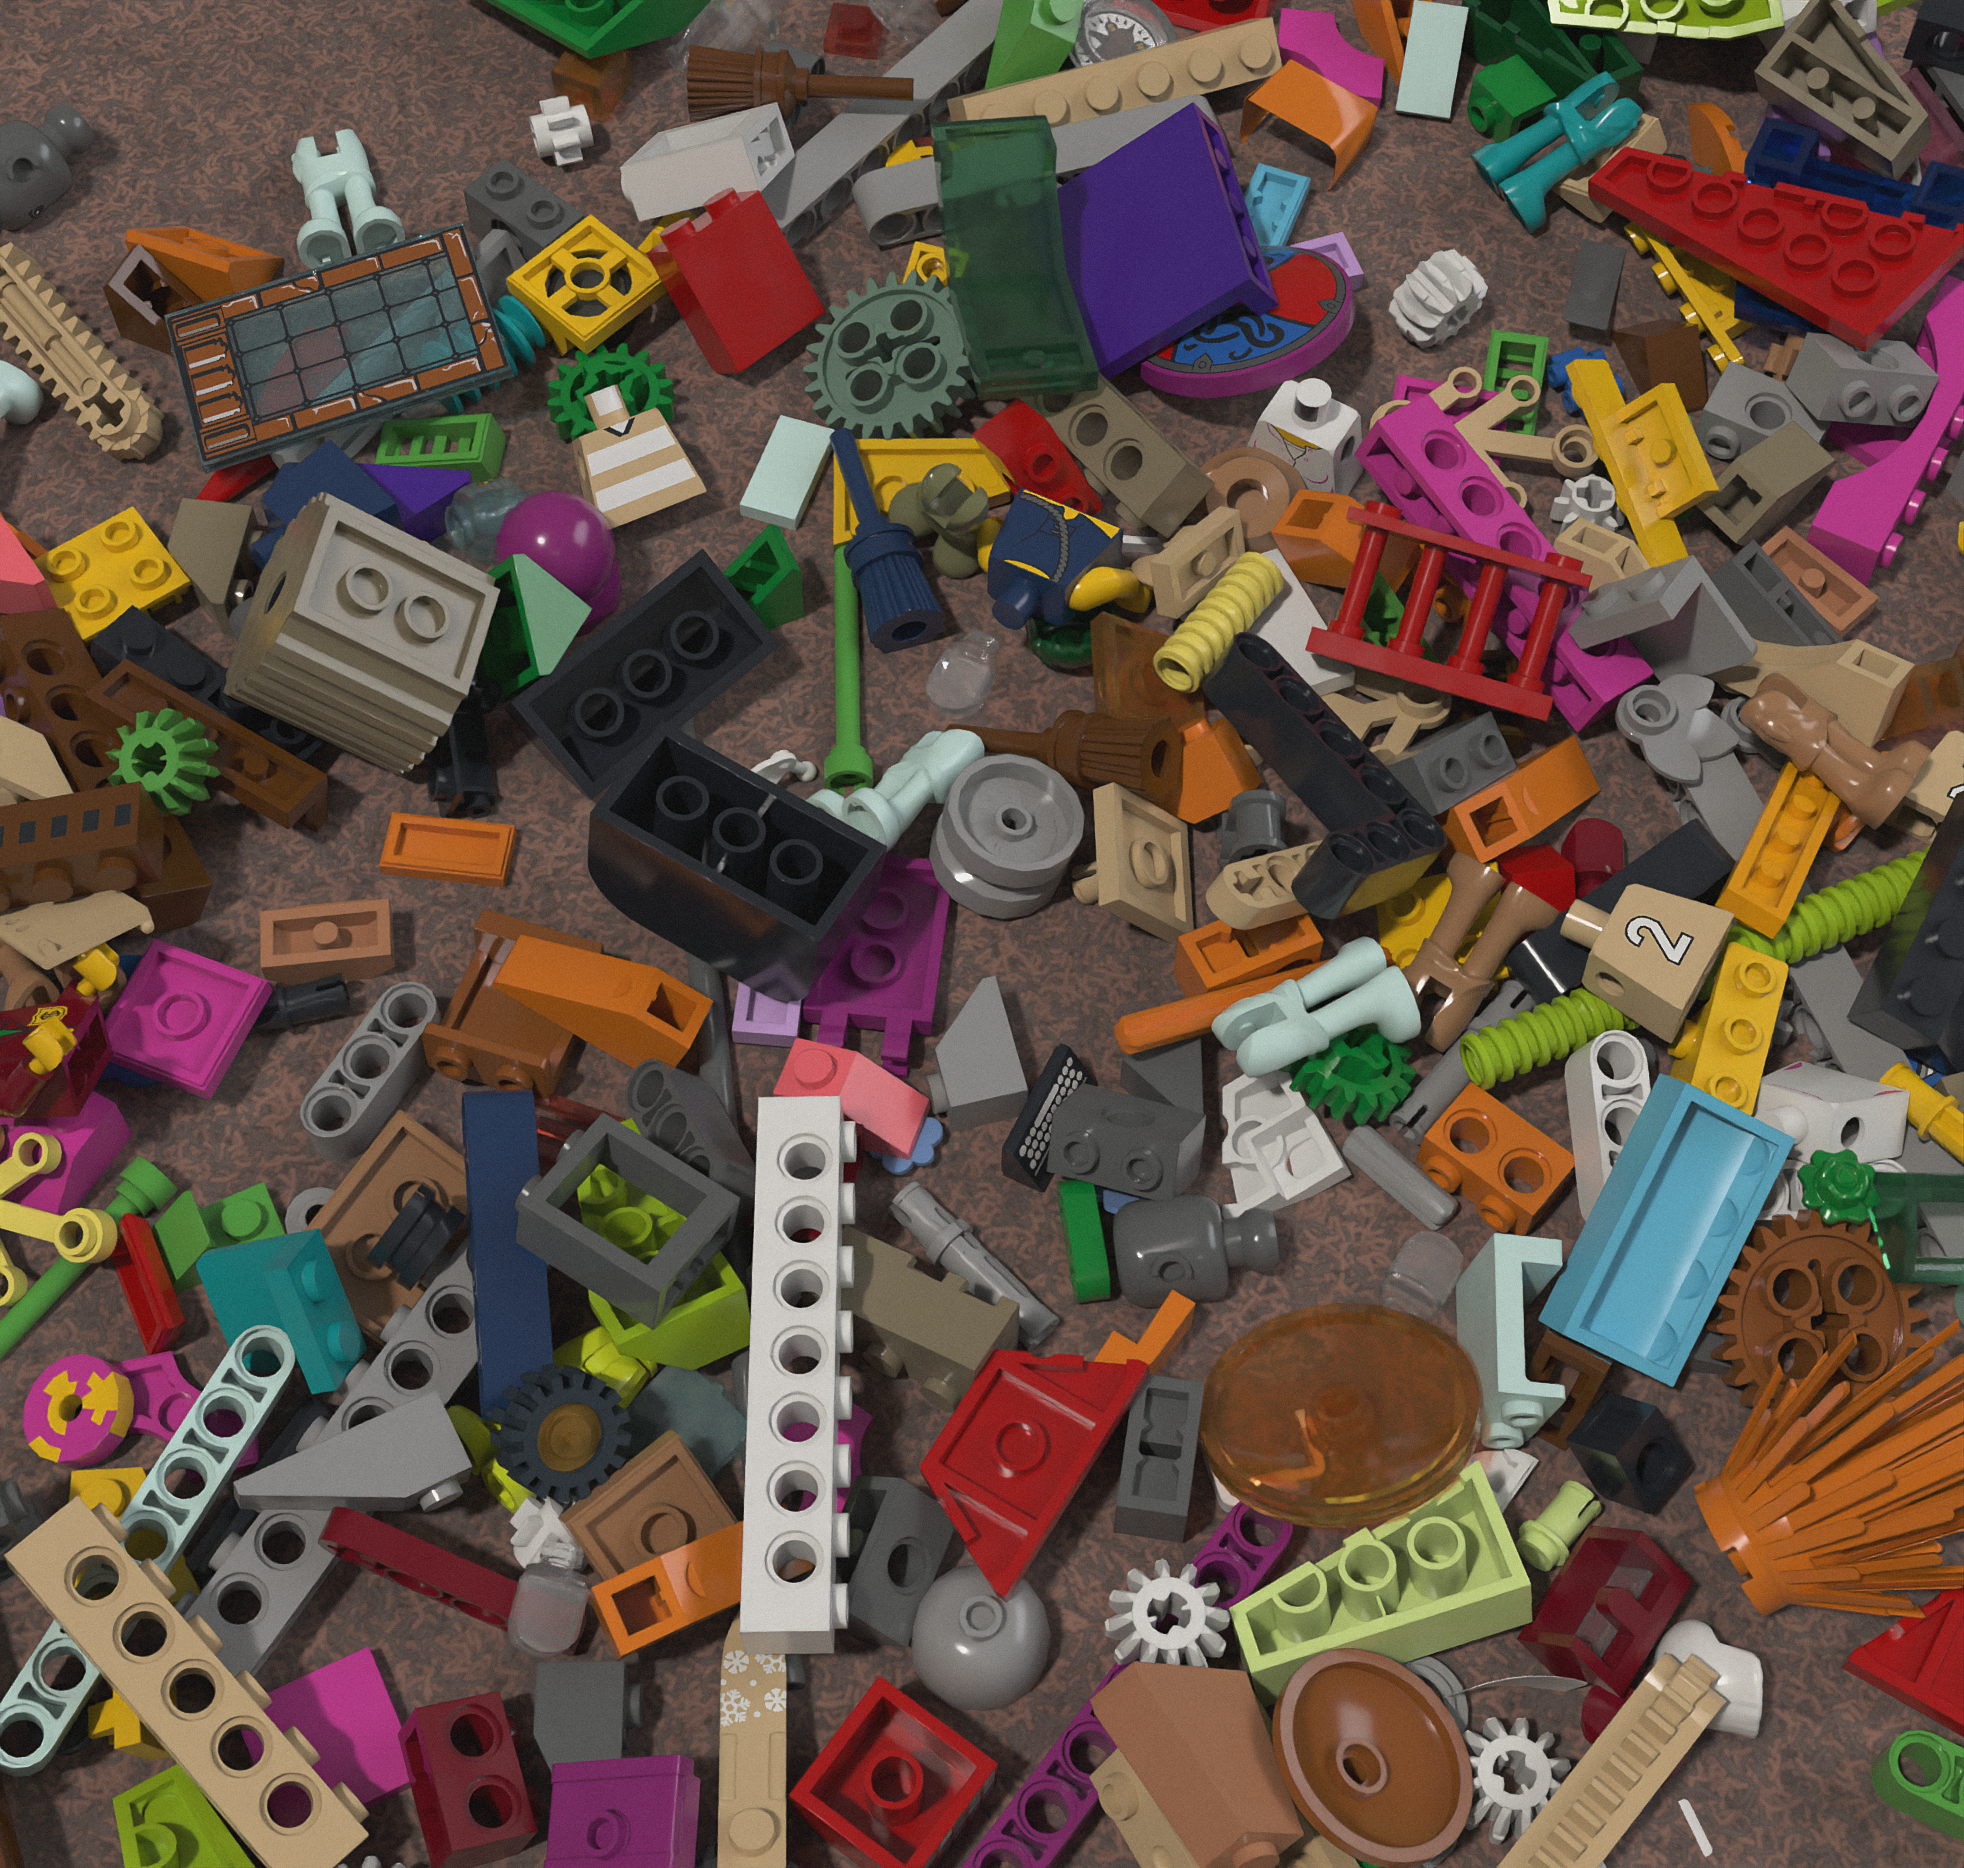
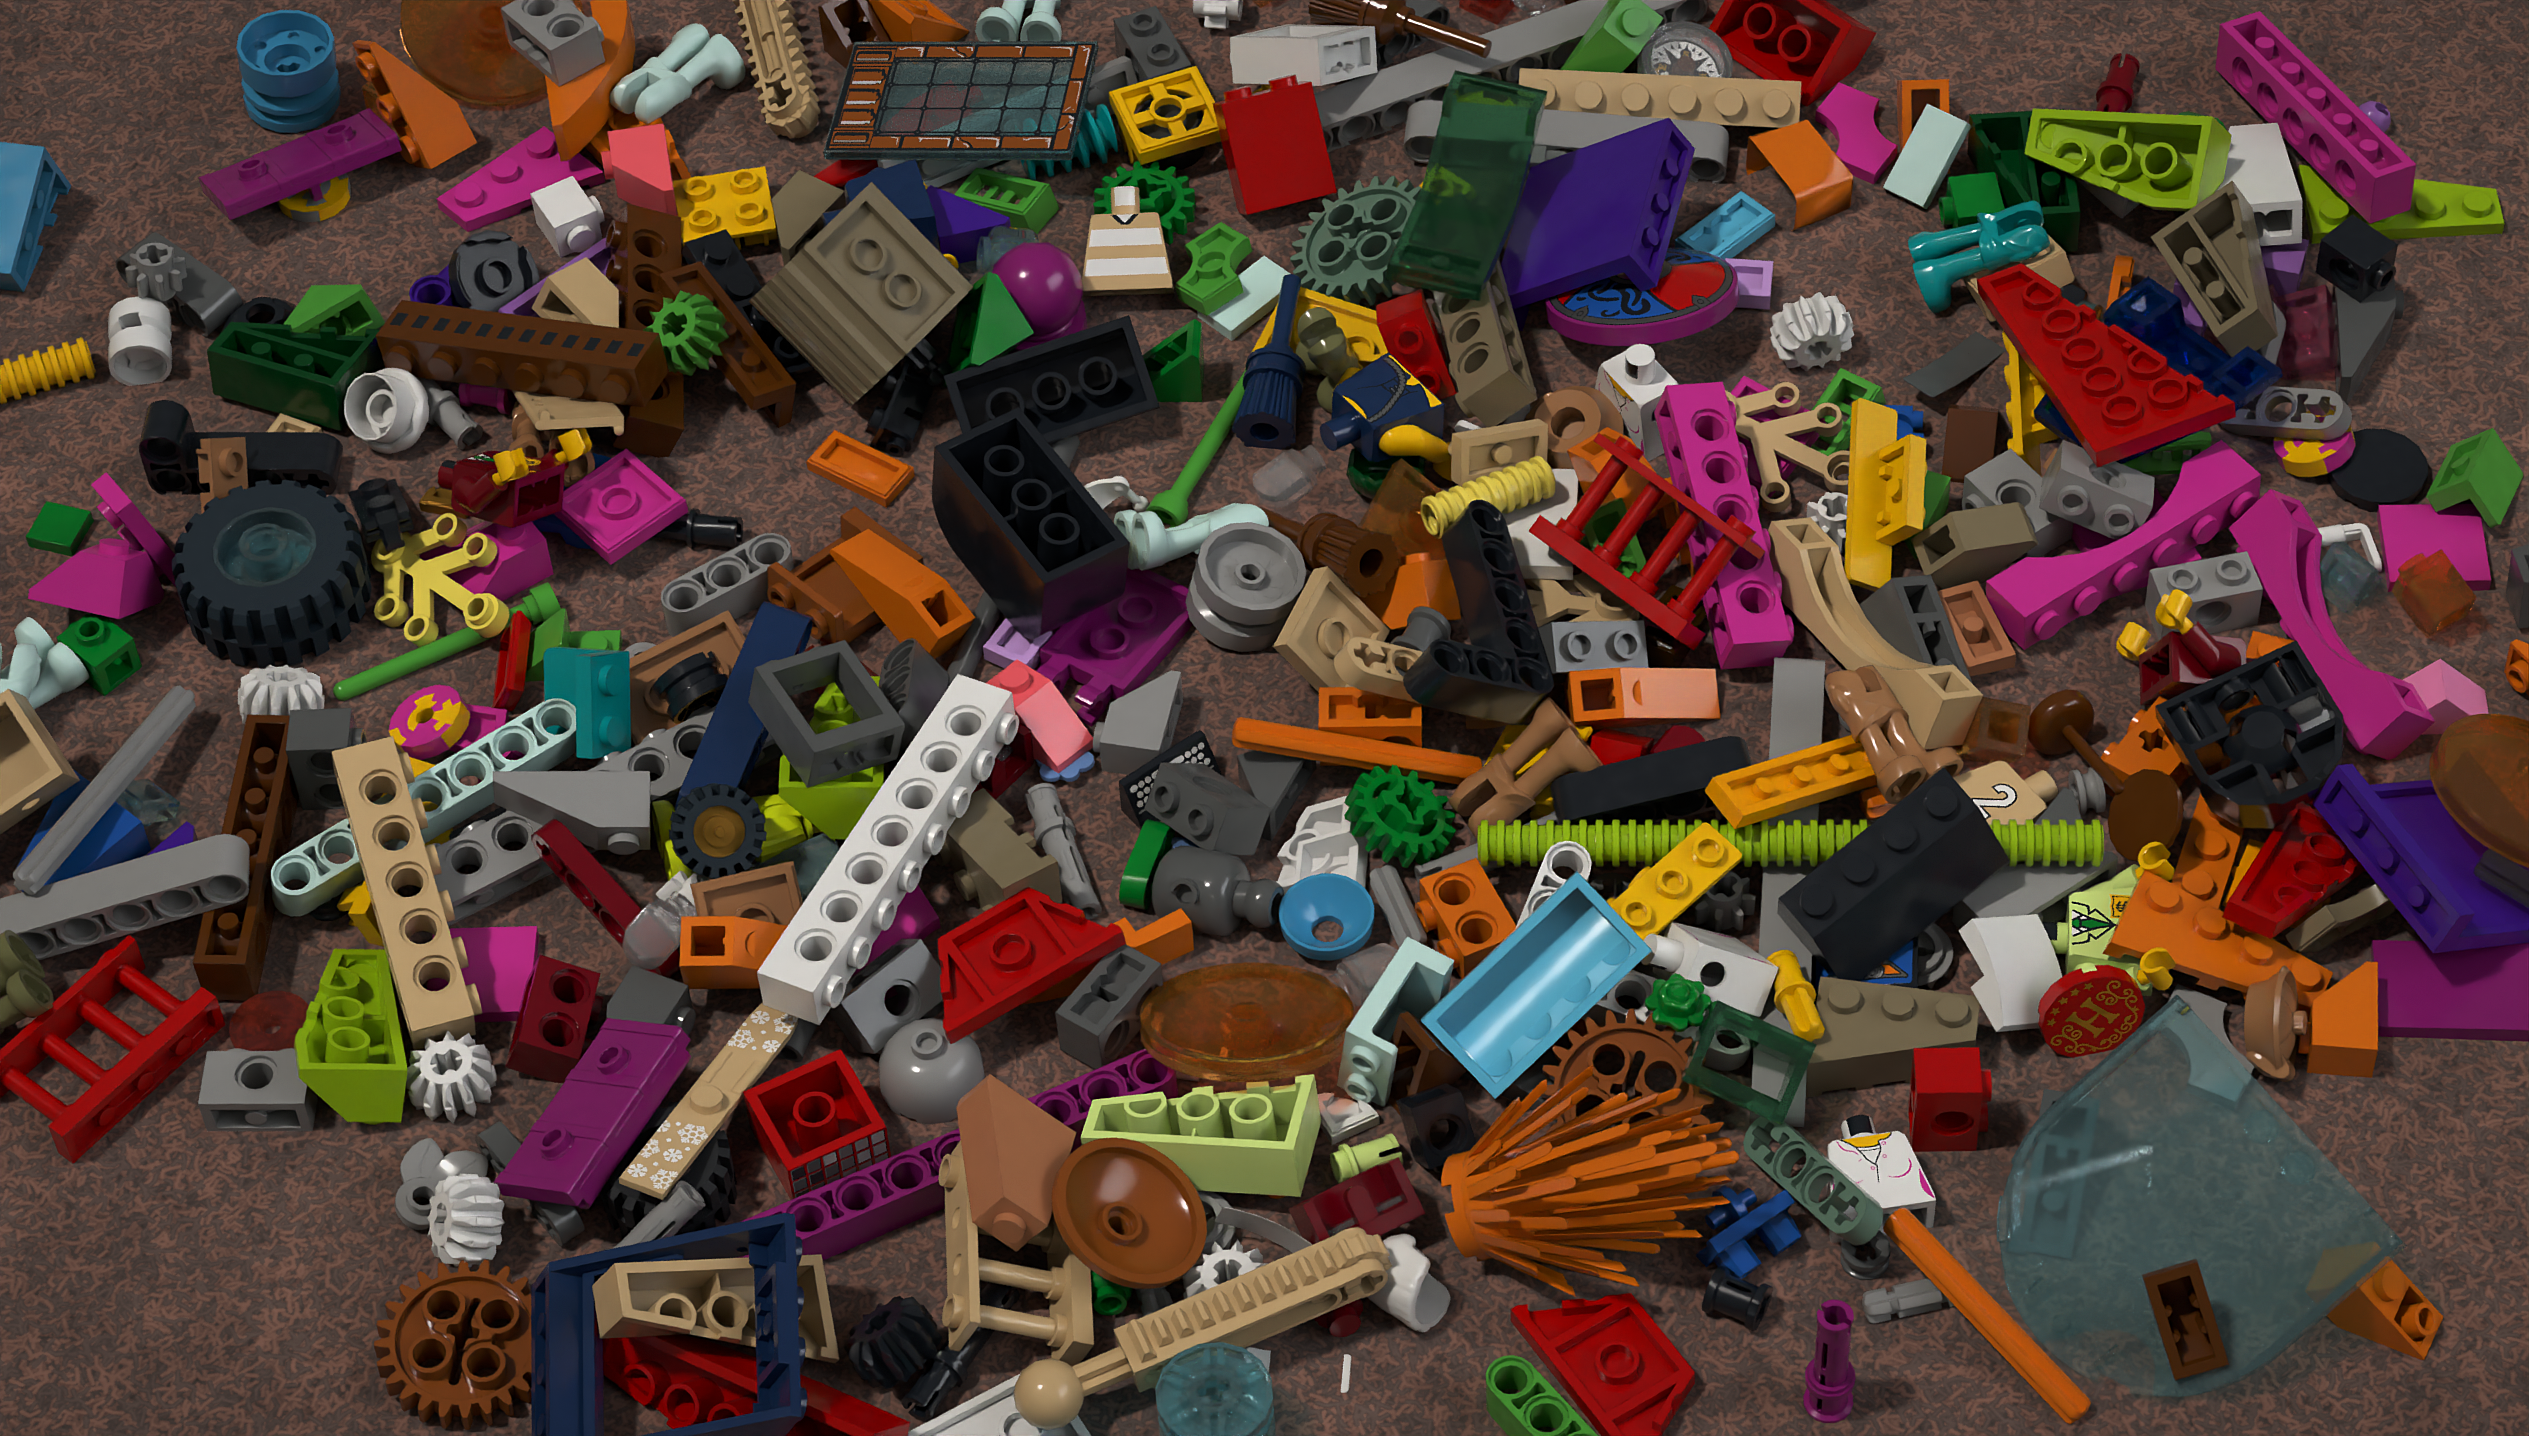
camera: 30 degrees right, 10 degrees down
(327, 940) = (743, 492): nougat slope -> none
(739, 466) = (1212, 274): none -> bright green tile
(1149, 1603) = (1050, 1082): white gear -> none
(1277, 1030) = (1365, 764): light aqua piece -> none
(1341, 1196) = (1326, 899): none -> dark azure piece
(1649, 953) = (1637, 805): tan torso -> none
(1671, 619) = (1813, 597): light grey bracket -> none
(1681, 729) = (1789, 683): light grey plate -> none

